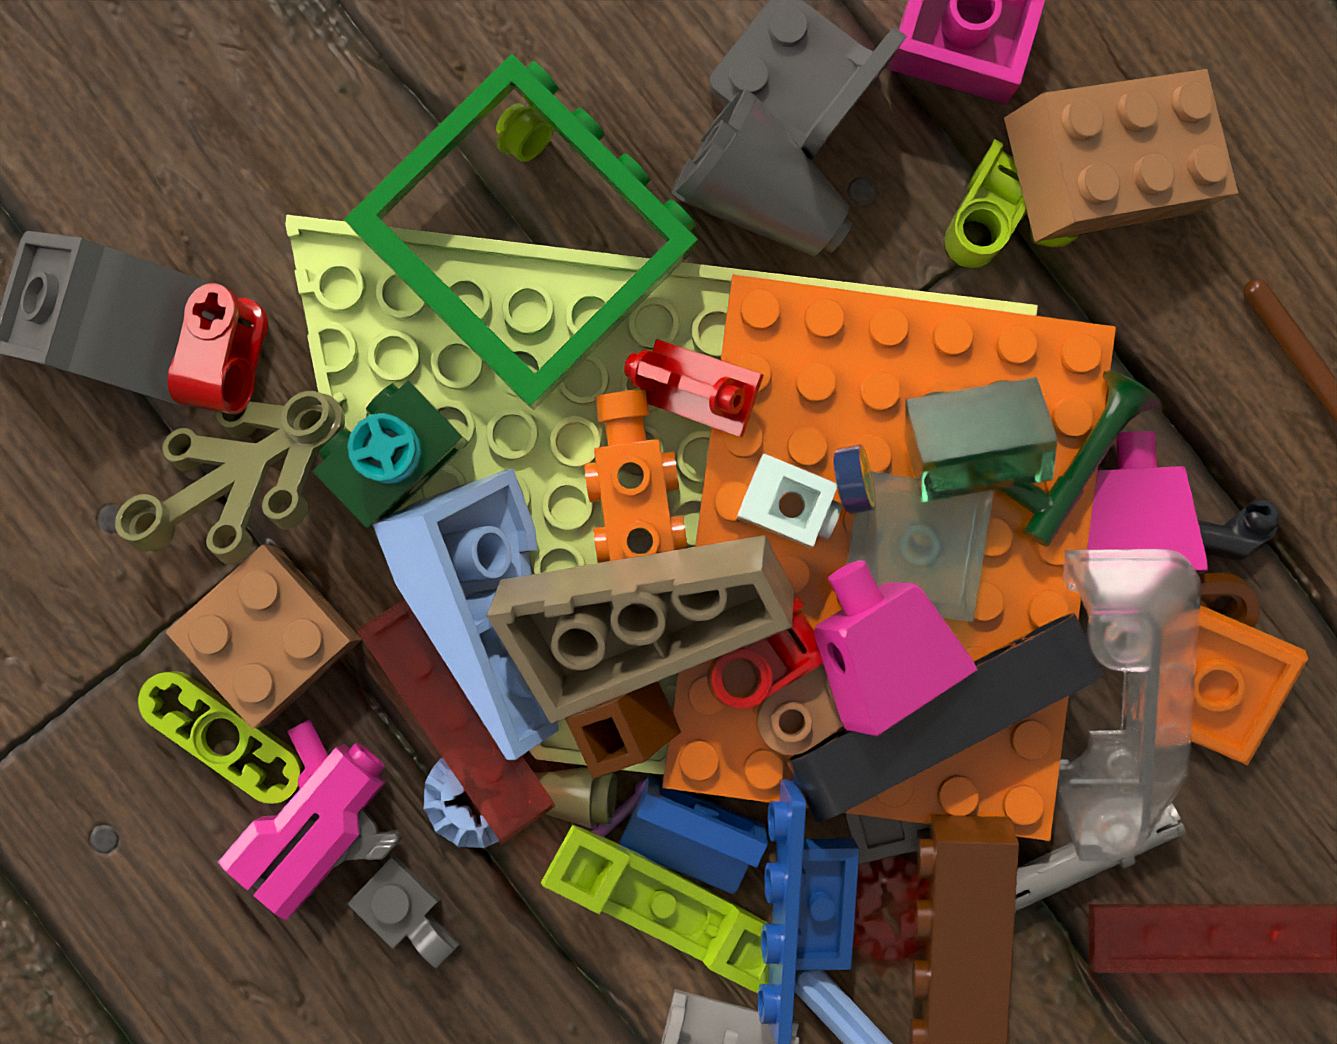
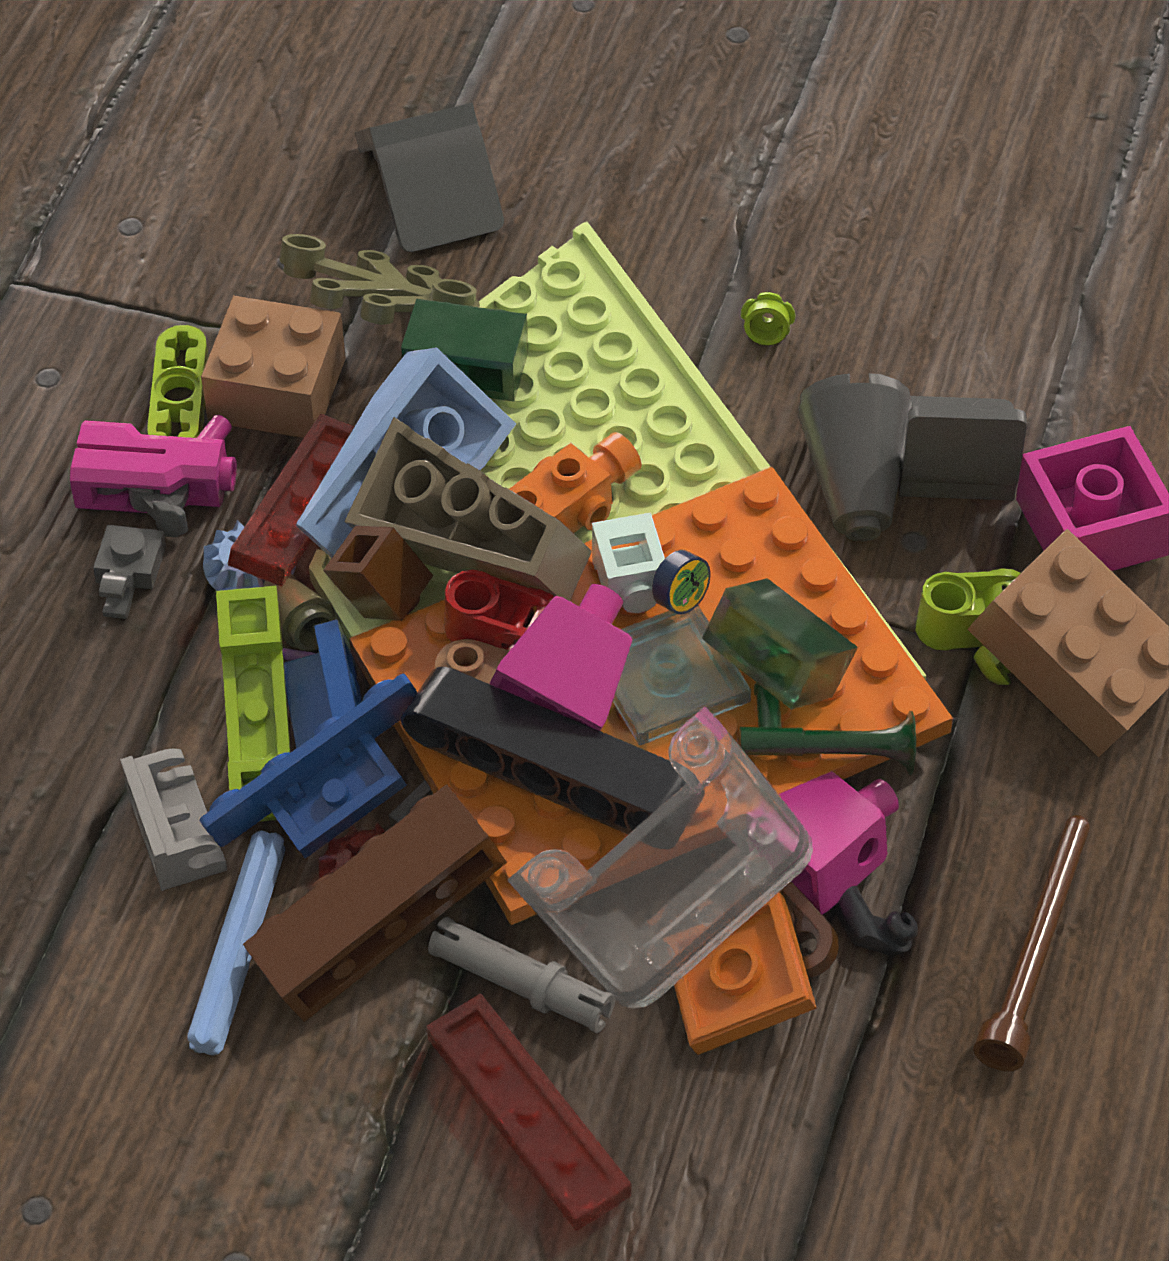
camera: 55 degrees right, 35 degrees down
(217, 357) = (469, 231): red piece -> none
(369, 441) = (466, 314): teal wheel -> none
(584, 137) = (678, 410): green window -> none
(695, 386) = (666, 482): hinge -> none

